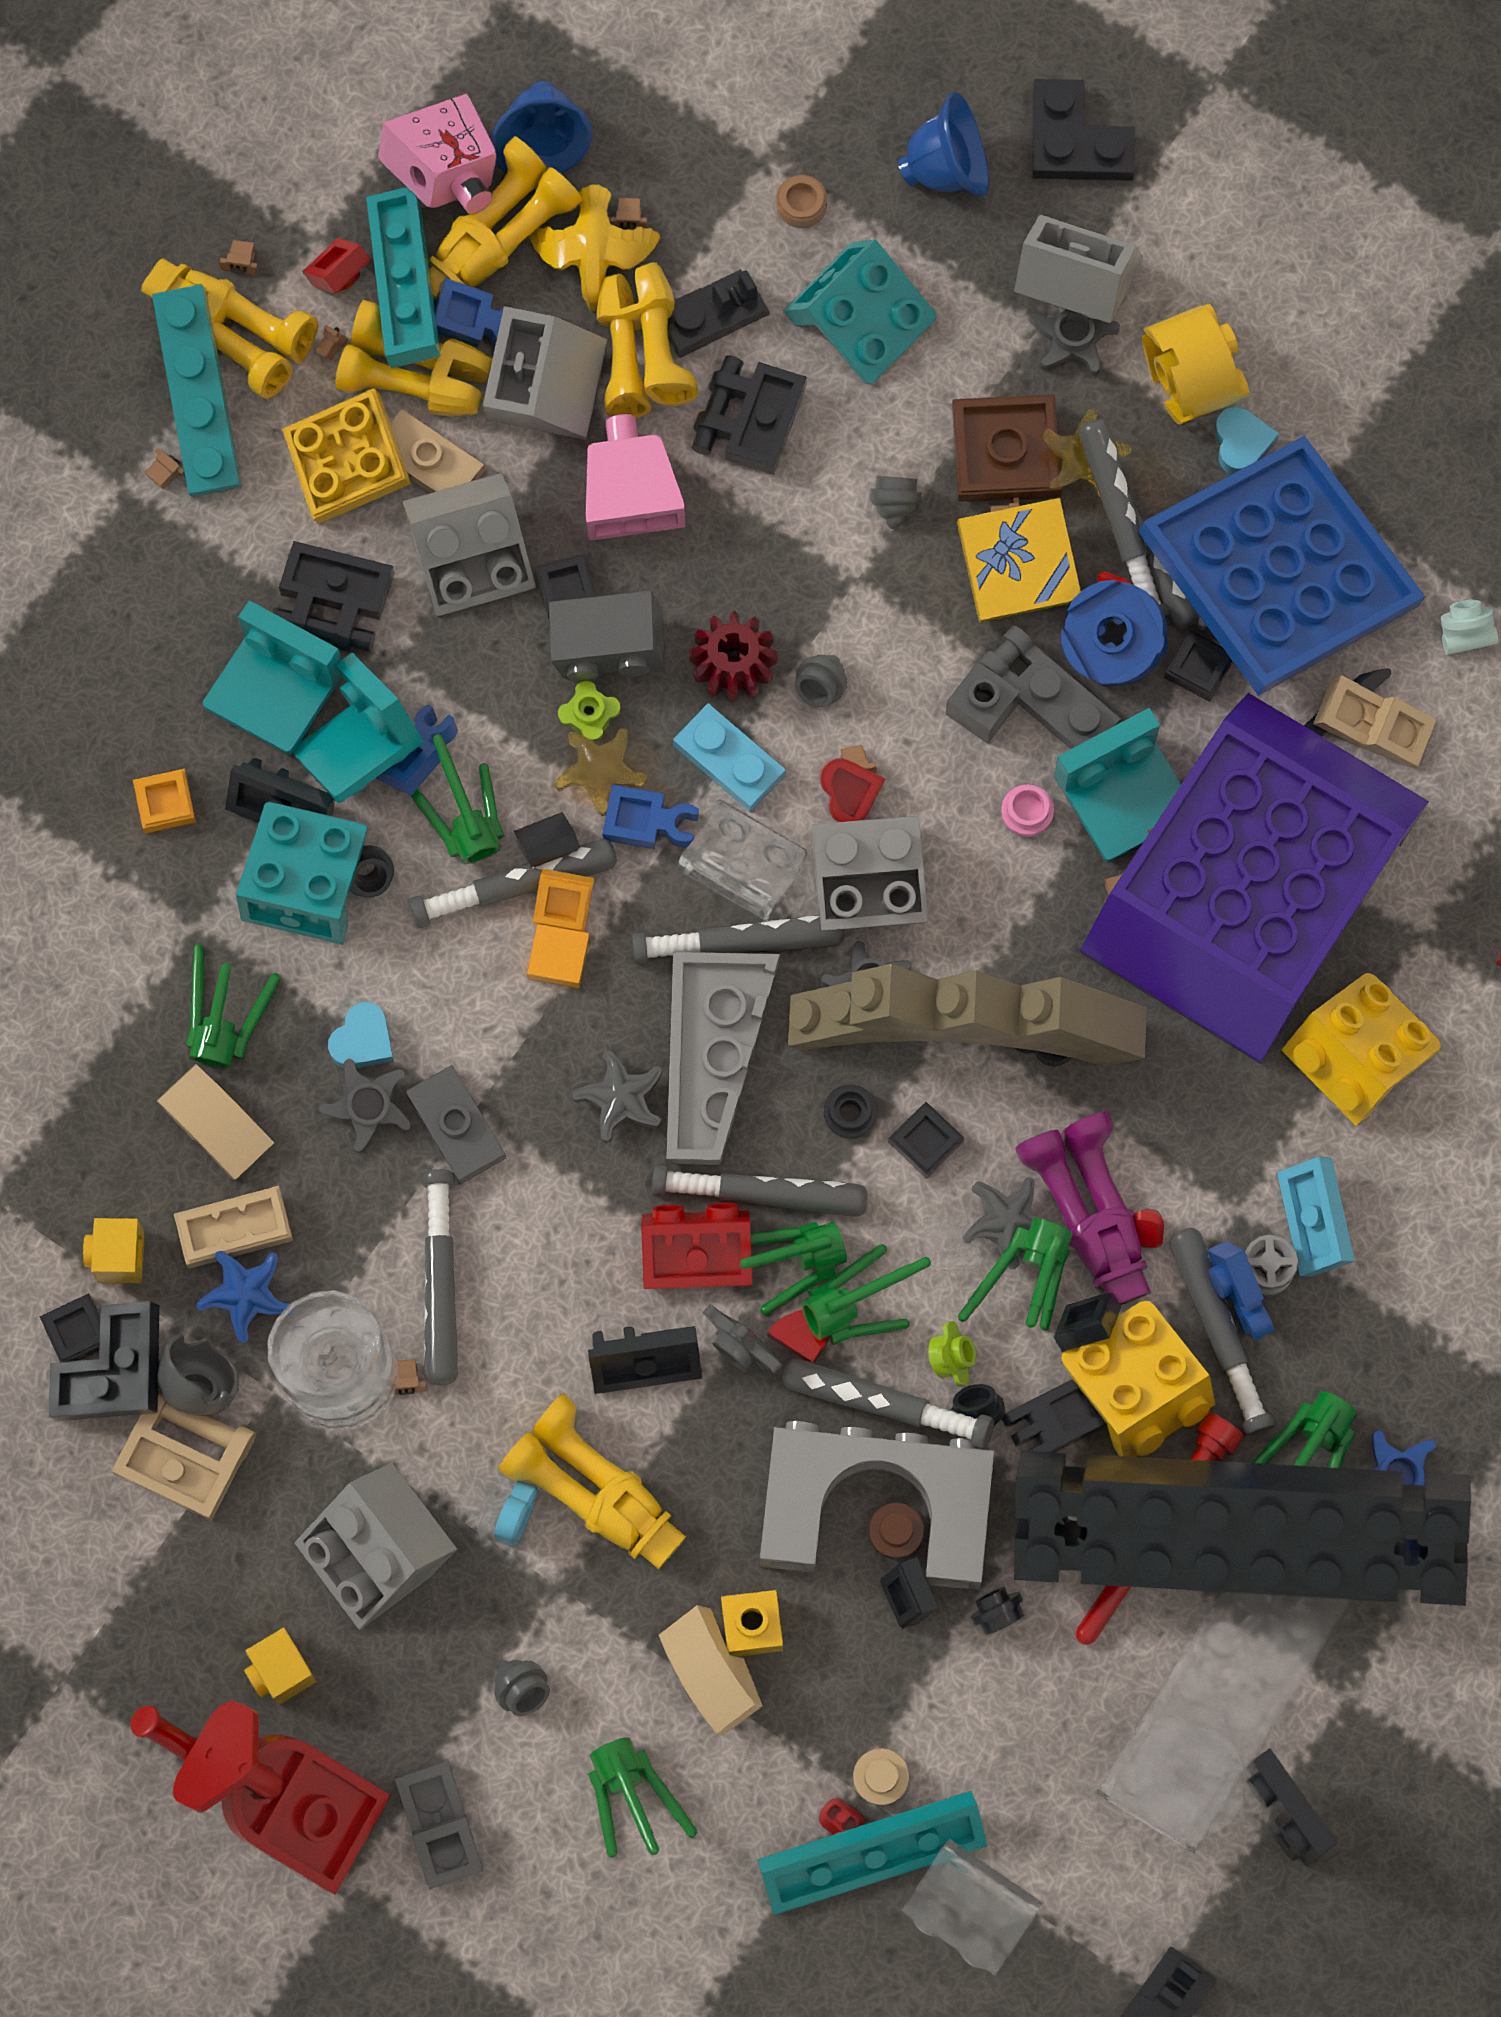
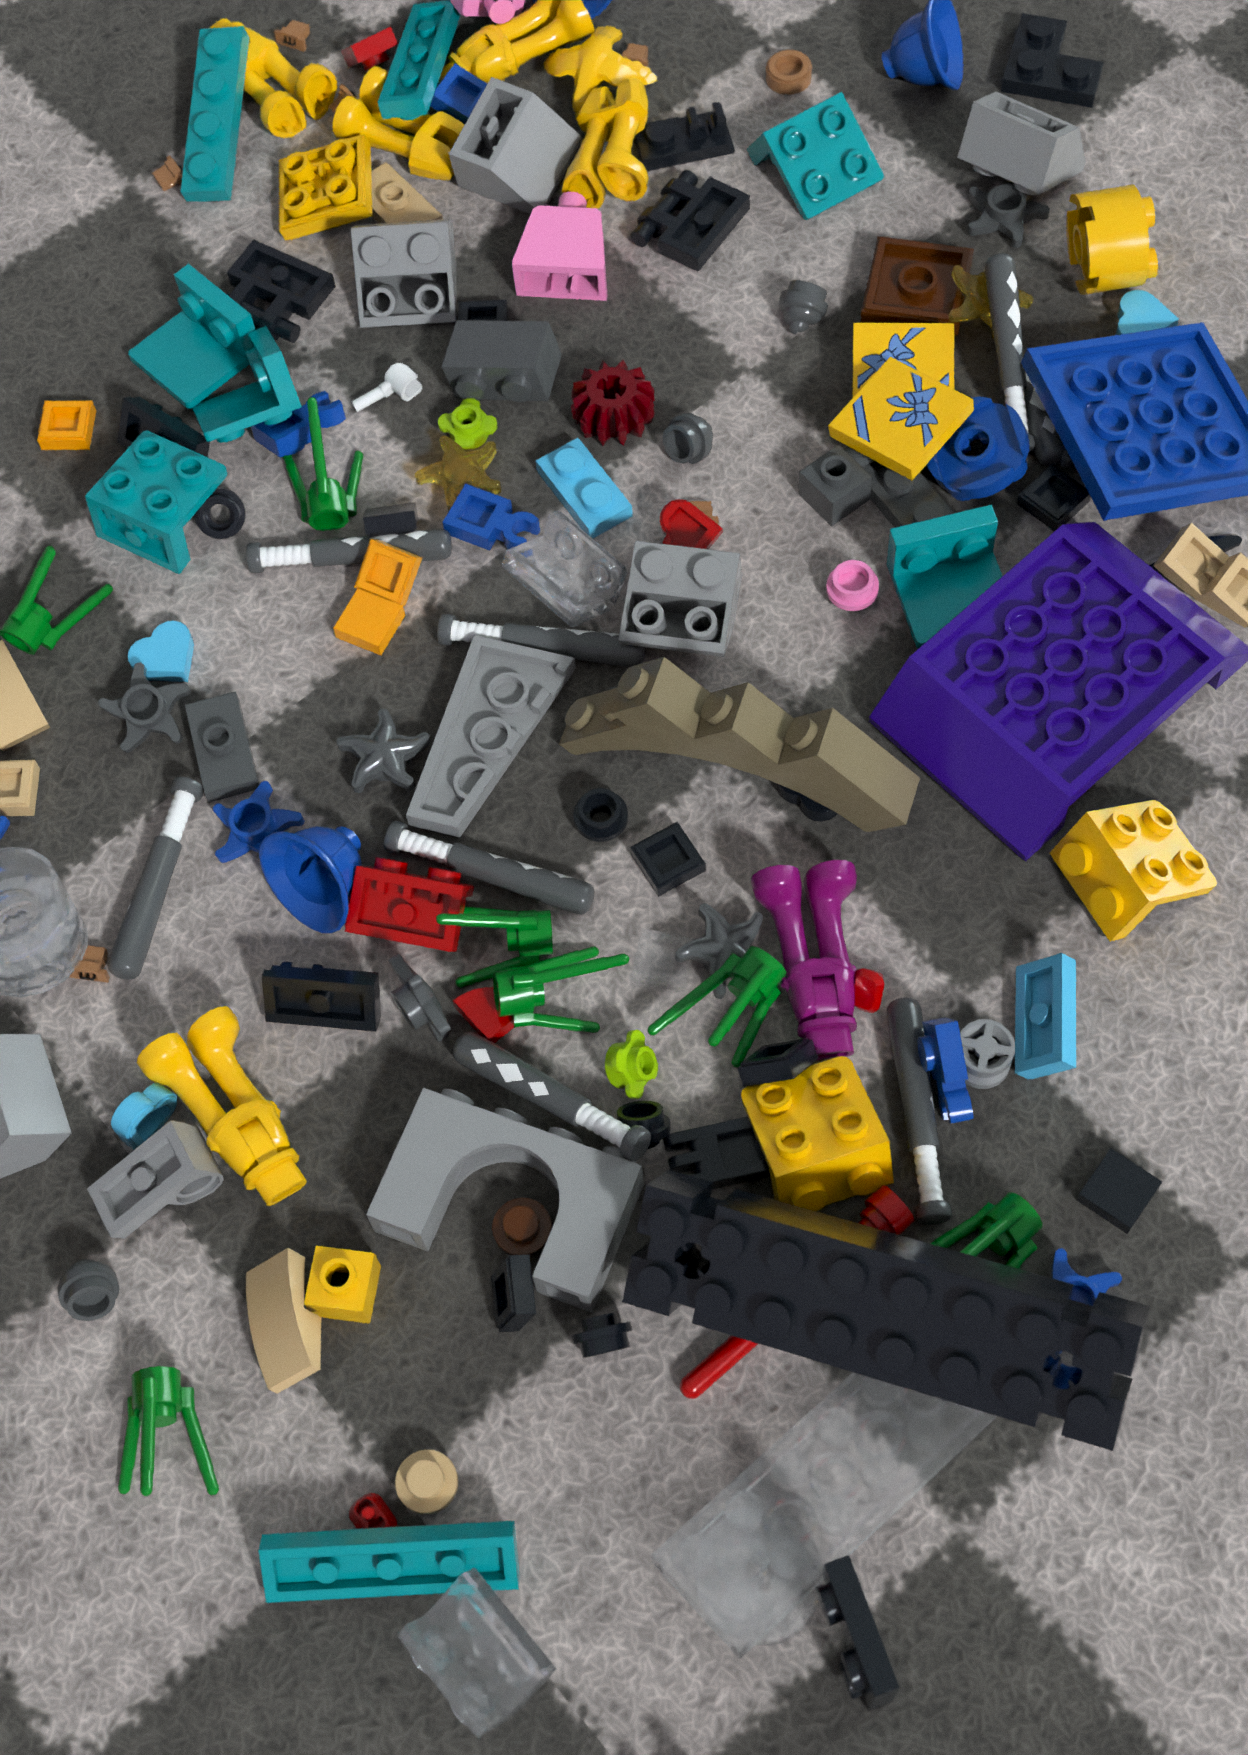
camera: 20 degrees right, 10 degrees down
(500, 674) = (397, 379): none -> white hand
(517, 1201) = (251, 822): none -> blue animal
(547, 1571) = (164, 1170): none -> light grey plate
(599, 1241) = (312, 873): none -> blue hat
(1035, 623) = (901, 418): none -> yellow tile
(1416, 1363) = (1119, 1191): none -> black tile

